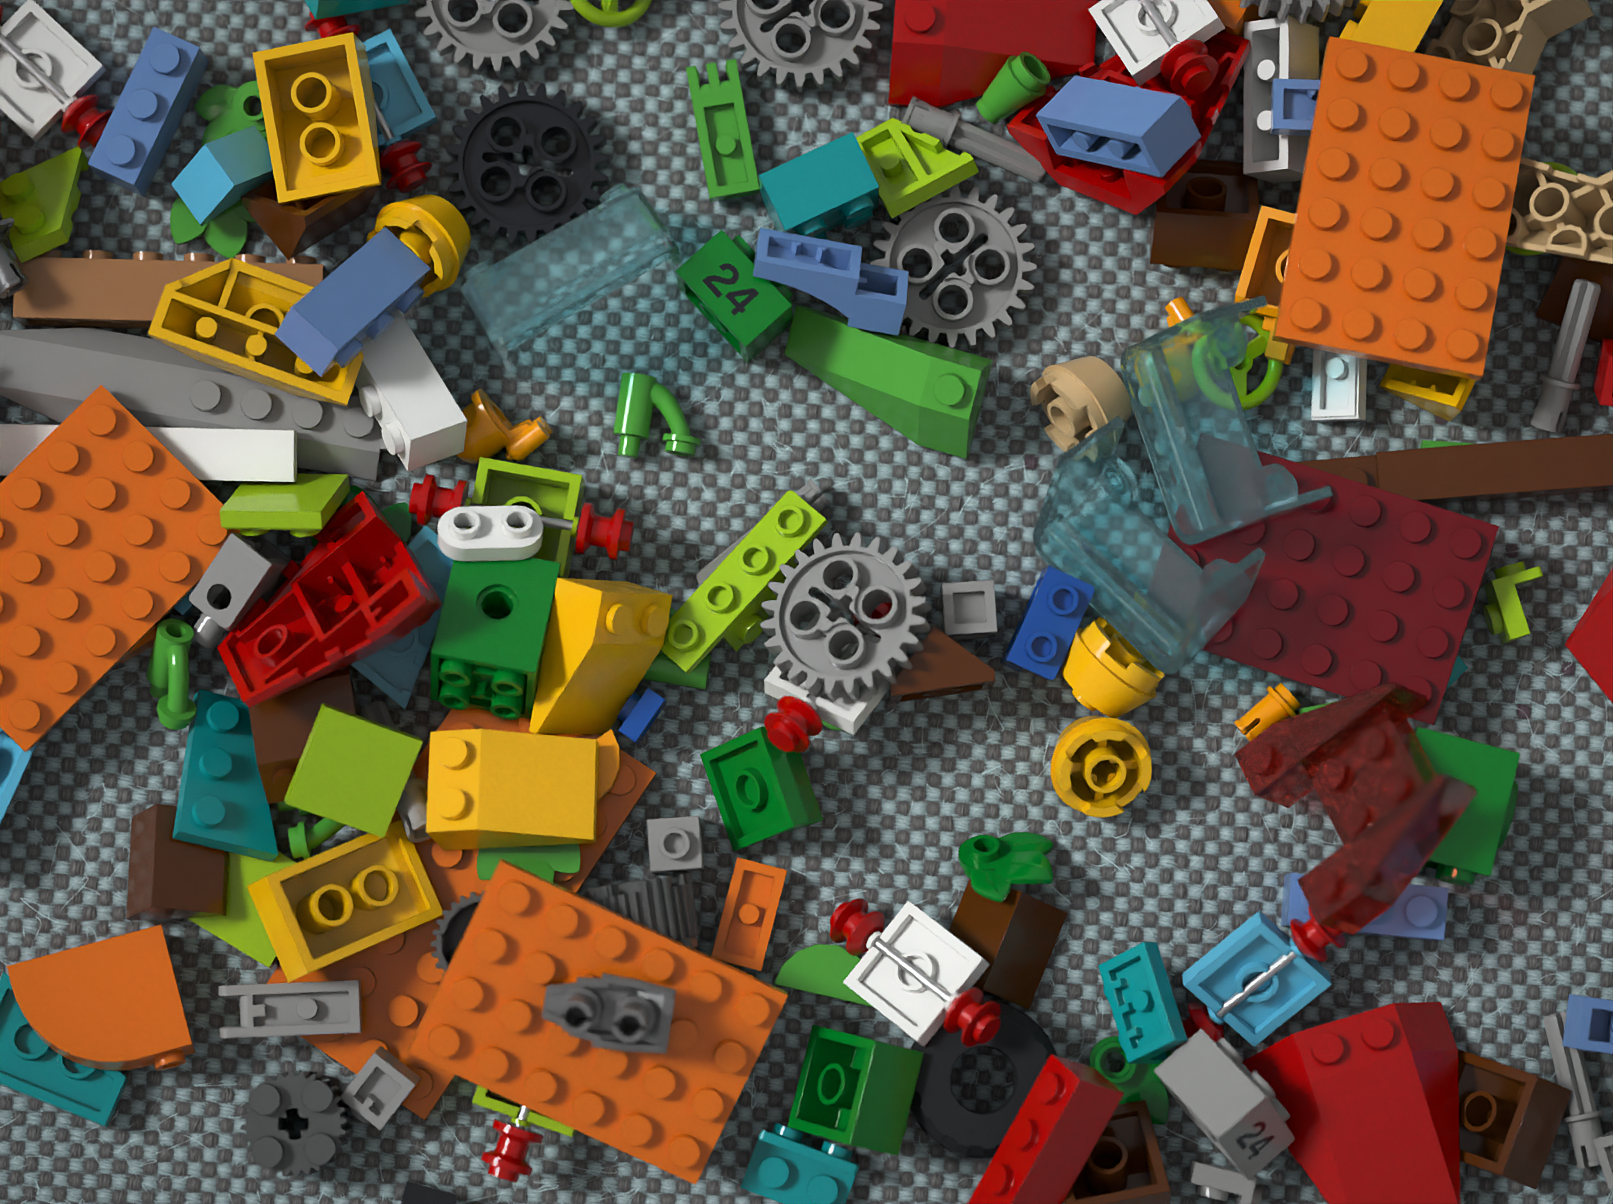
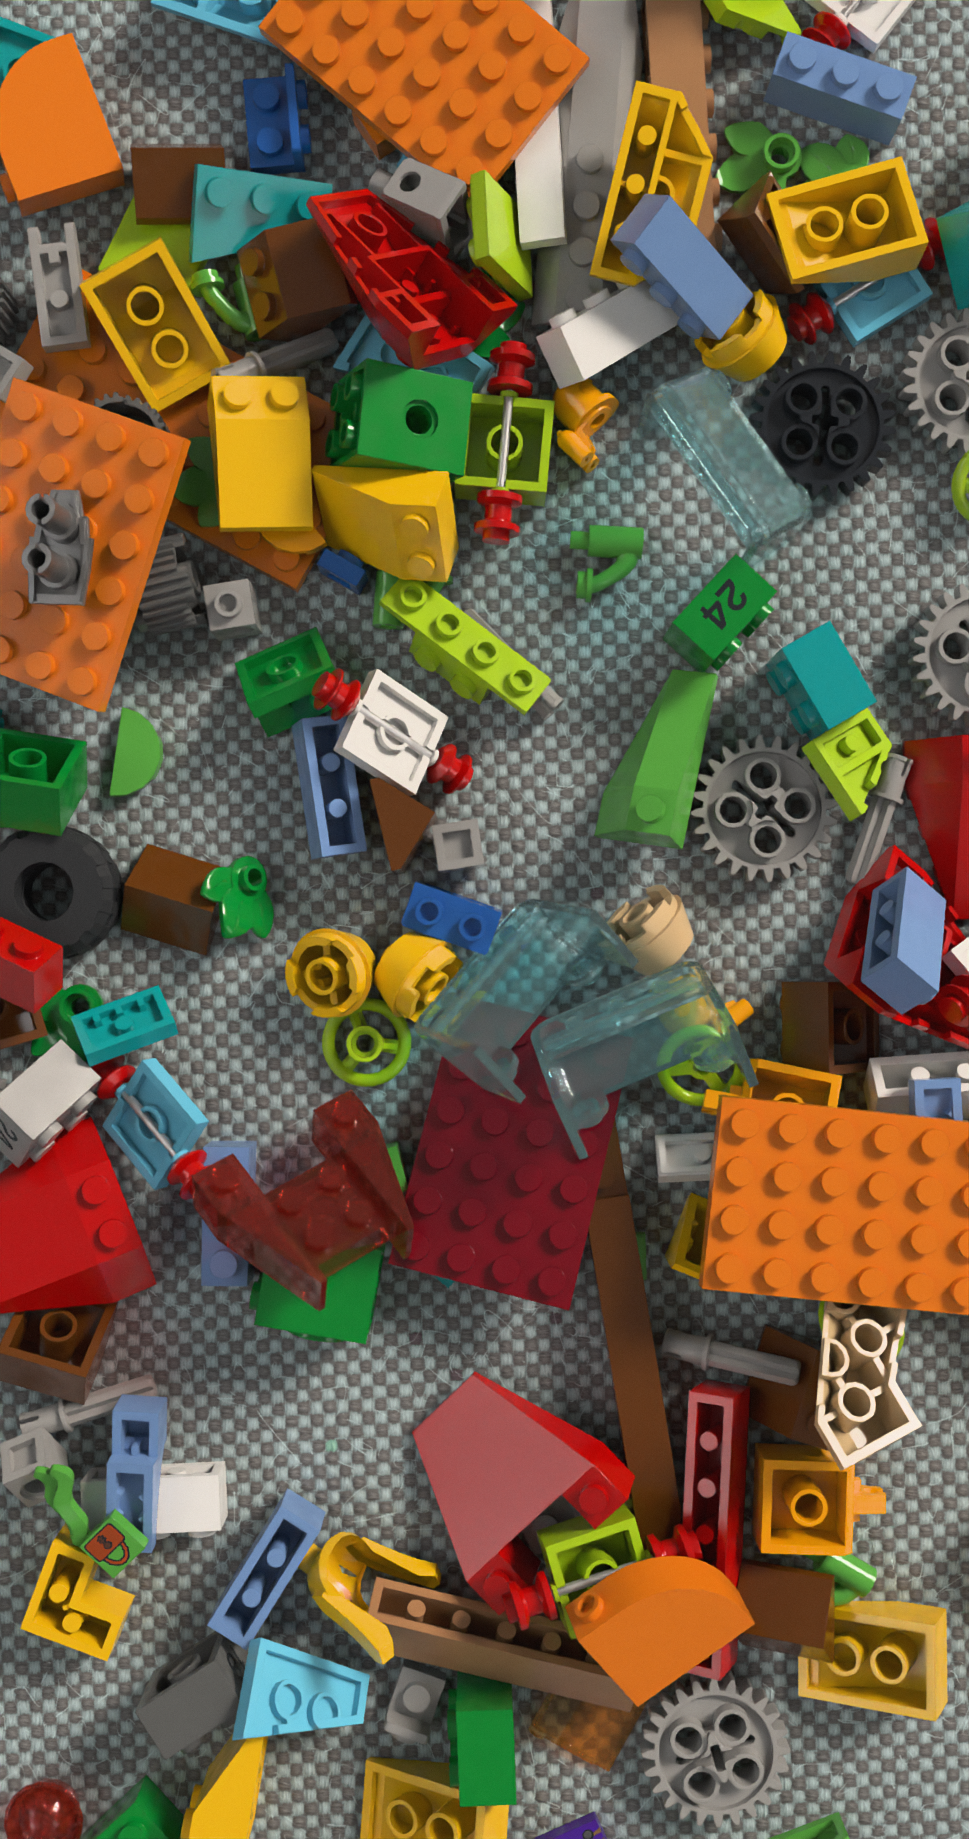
camera: 85 degrees right, 5 degrees up
(116, 750) = (274, 123): none -> blue bracket
(170, 673) = (346, 156): bright green plant -> none
(224, 173) = (788, 150): medium azure slope -> none
(353, 770) = (263, 309): lime tile -> none
(490, 533) = (483, 408): white plate -> none
(723, 133) = (866, 596): bright green hinge -> none
(749, 914) = (180, 680): orange plate -> none
(815, 652) = (402, 710): light grey gear -> none
(833, 272) = (746, 696): medium blue slope -> none
(892, 752) = (328, 789): none -> medium blue brick
(915, 973) = (133, 825): white plate -> none
(1014, 87) = (930, 850): bright green cone -> none
(1209, 764) = (345, 1068): none -> lime piece
(1273, 708) = (394, 1118): light orange pin -> none
(1504, 611) = (500, 1316): lime bracket -> none

